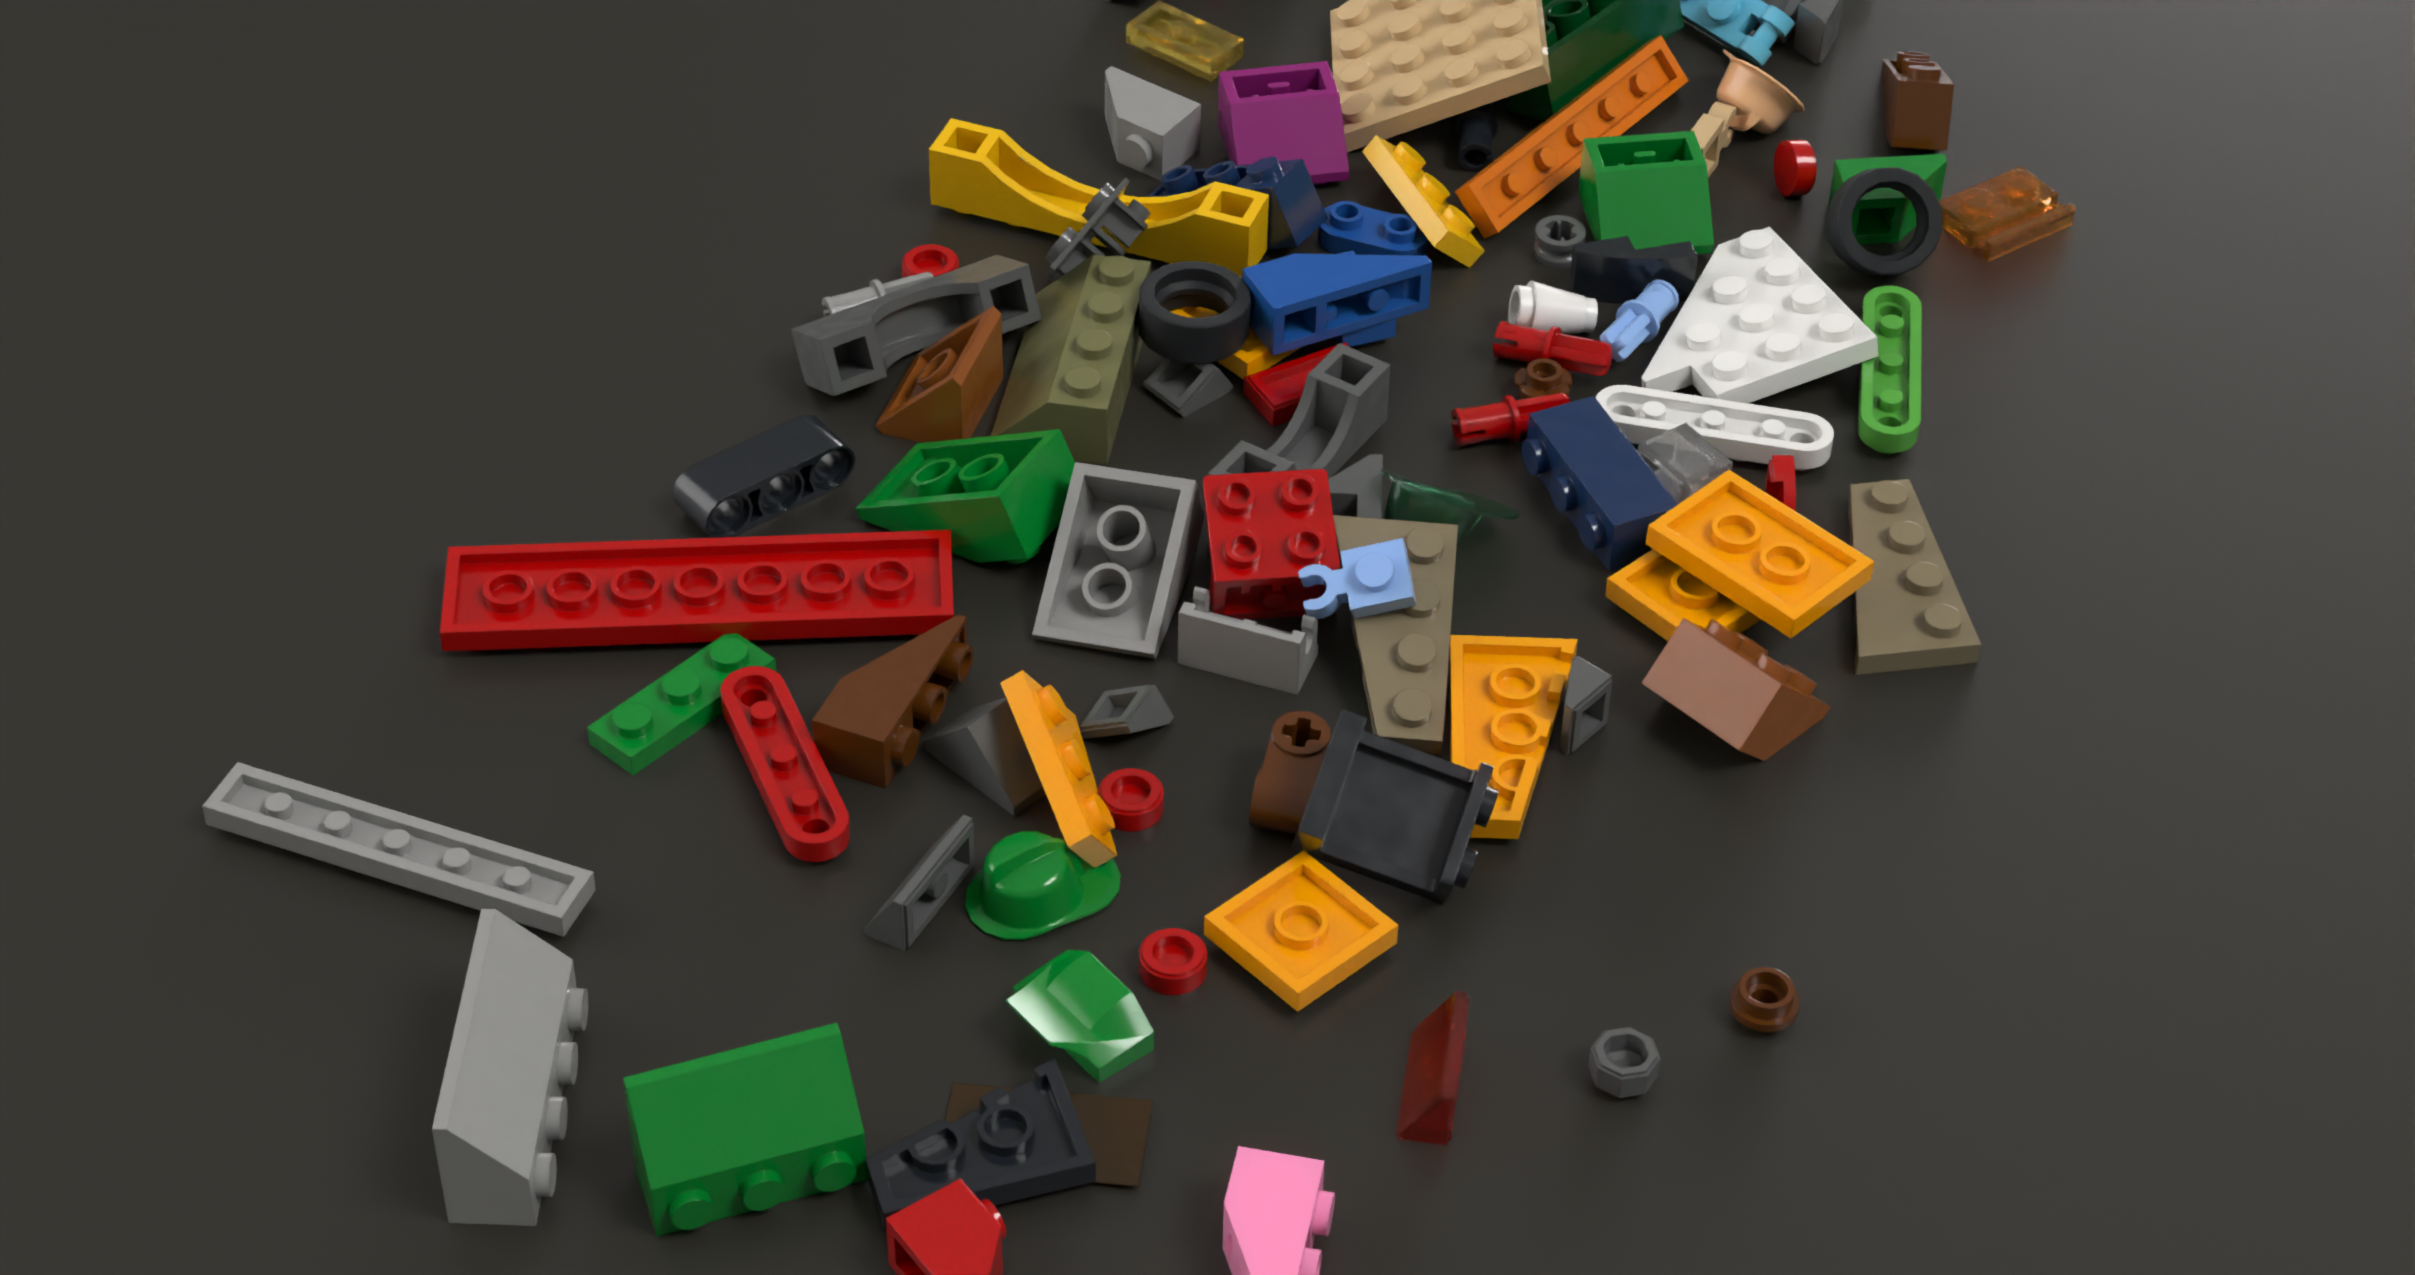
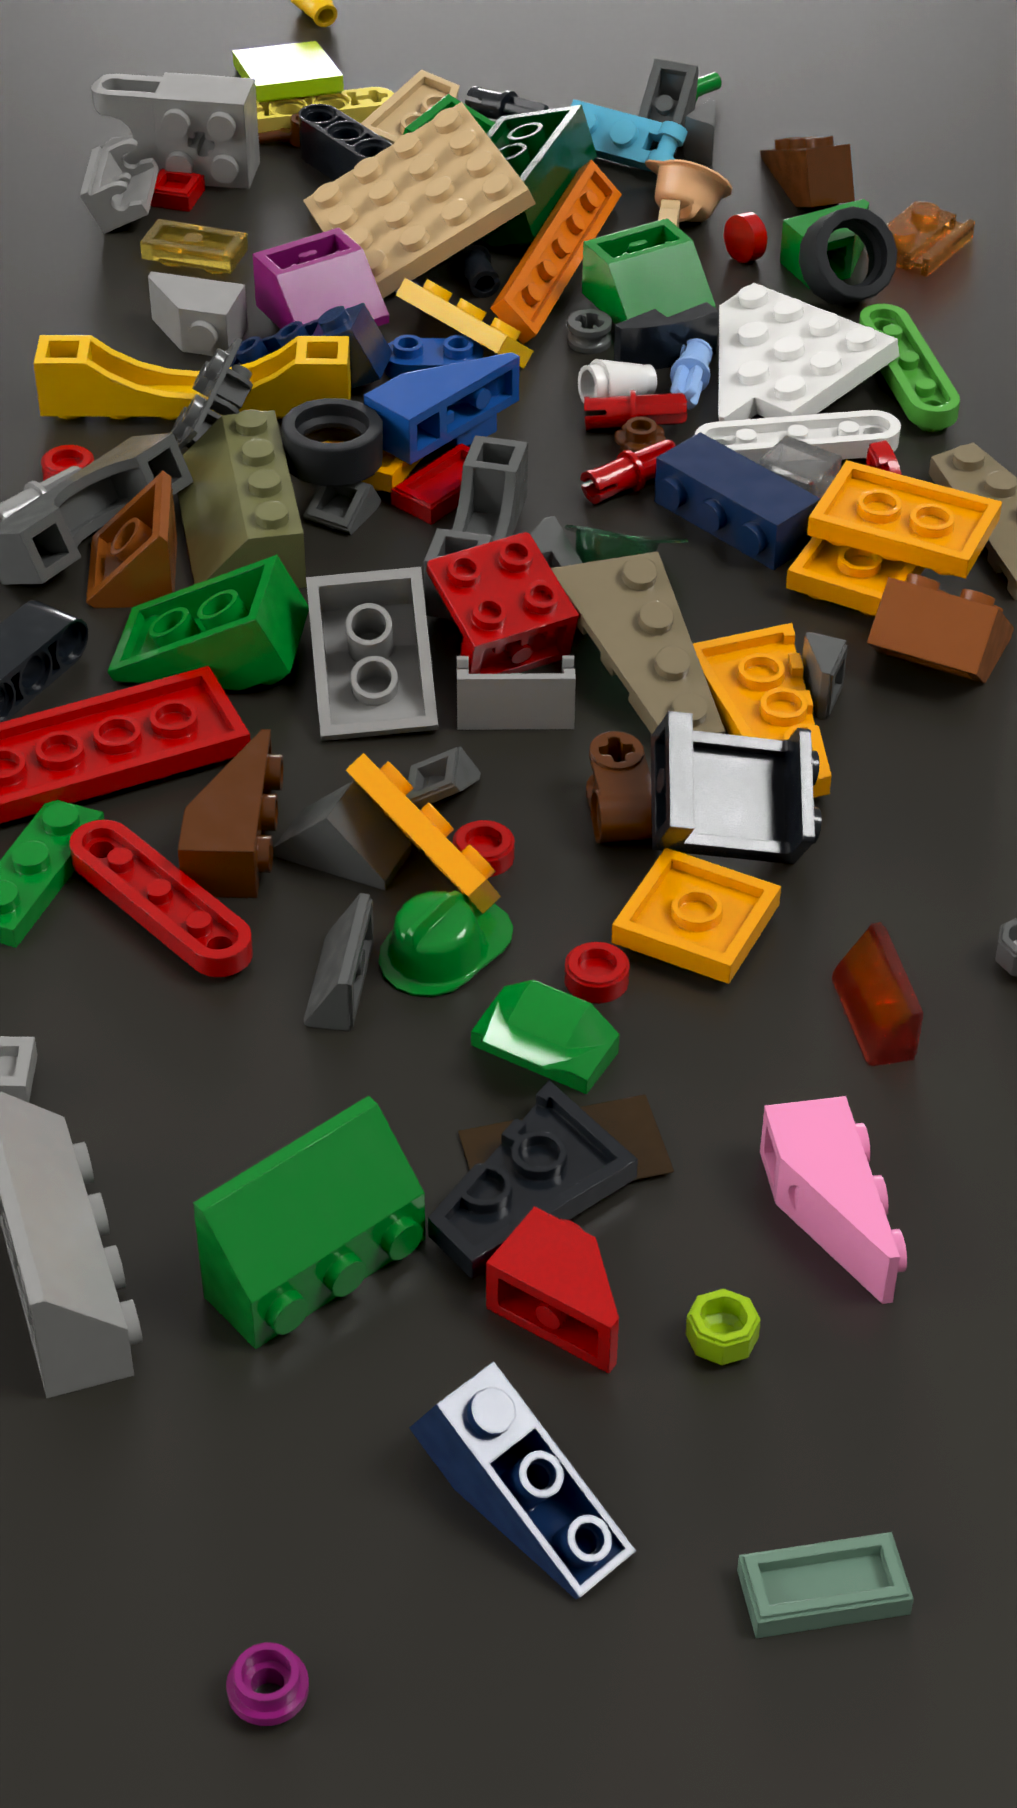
camera: 20 degrees left, 0 degrees up
(1371, 580) = (610, 609): light blue plate -> none

